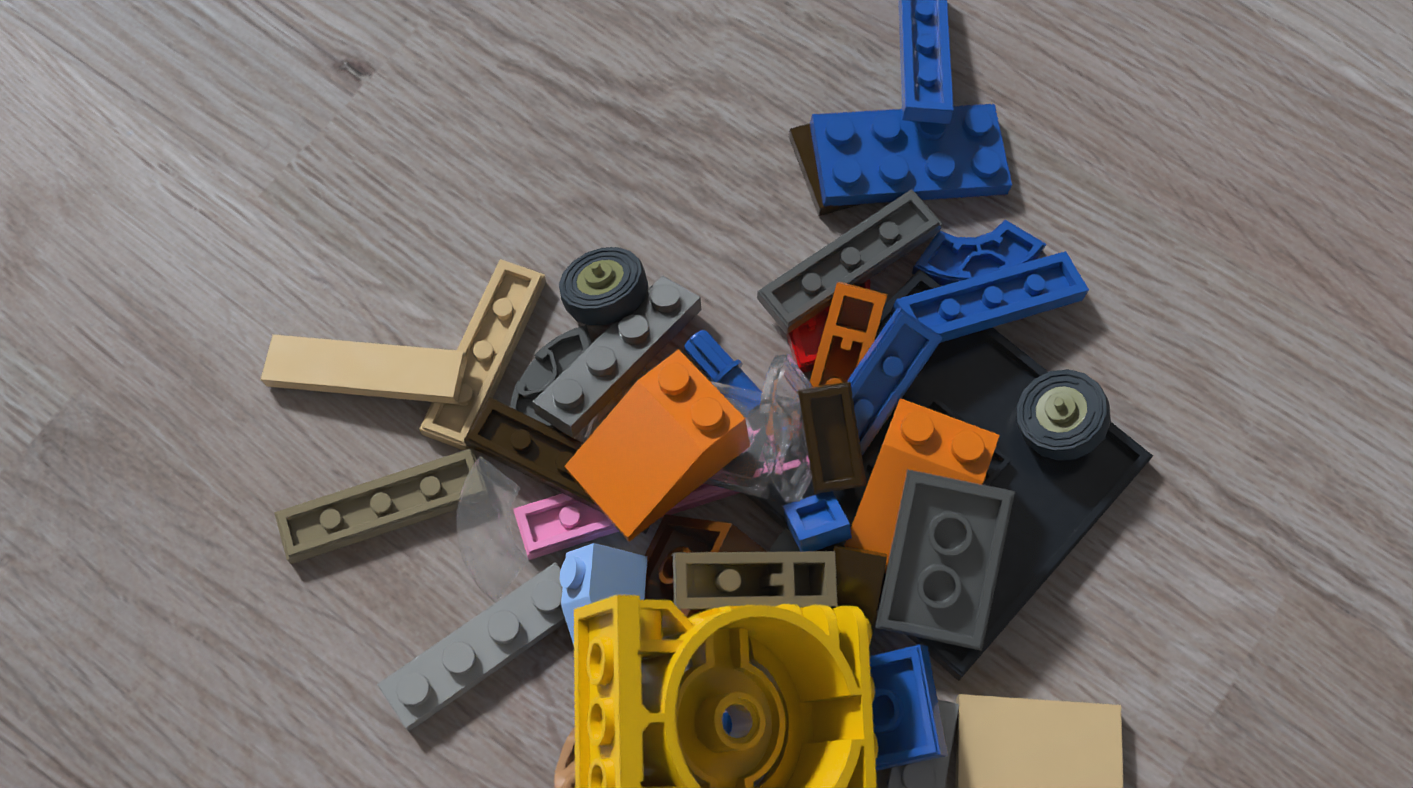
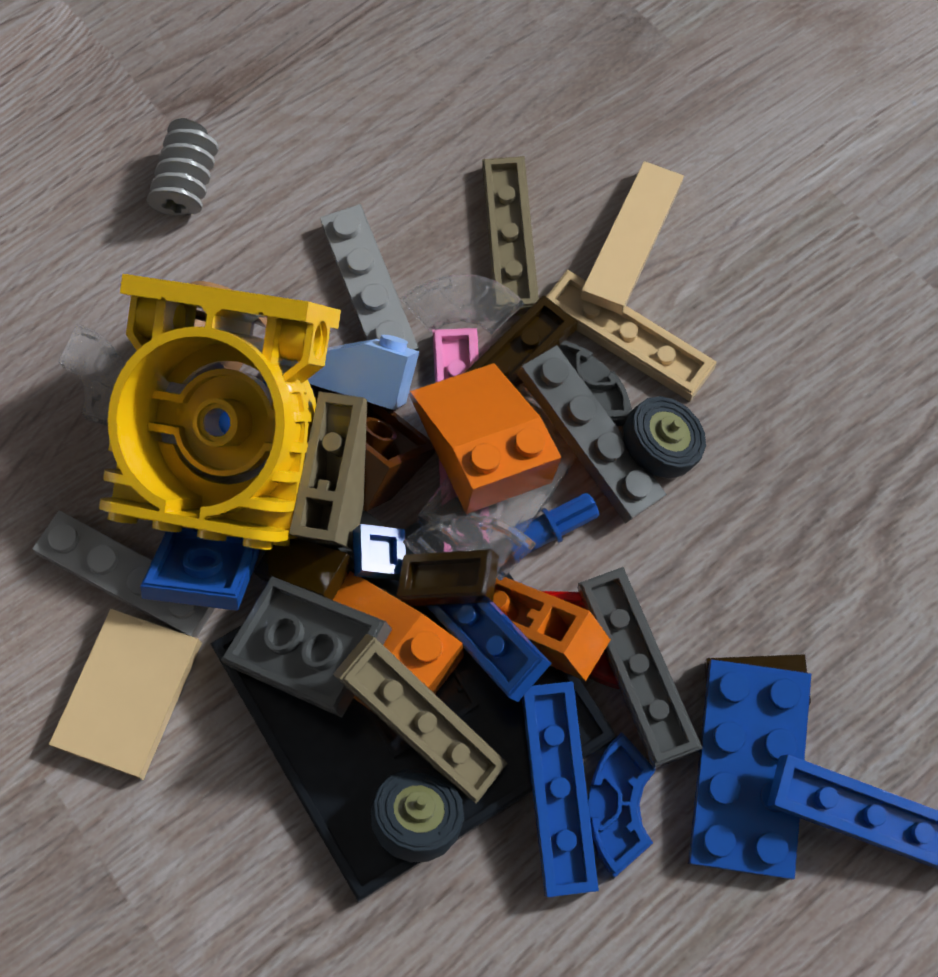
camera: 110 degrees right, 0 degrees up
(987, 418) = (420, 717): none -> dark tan tile

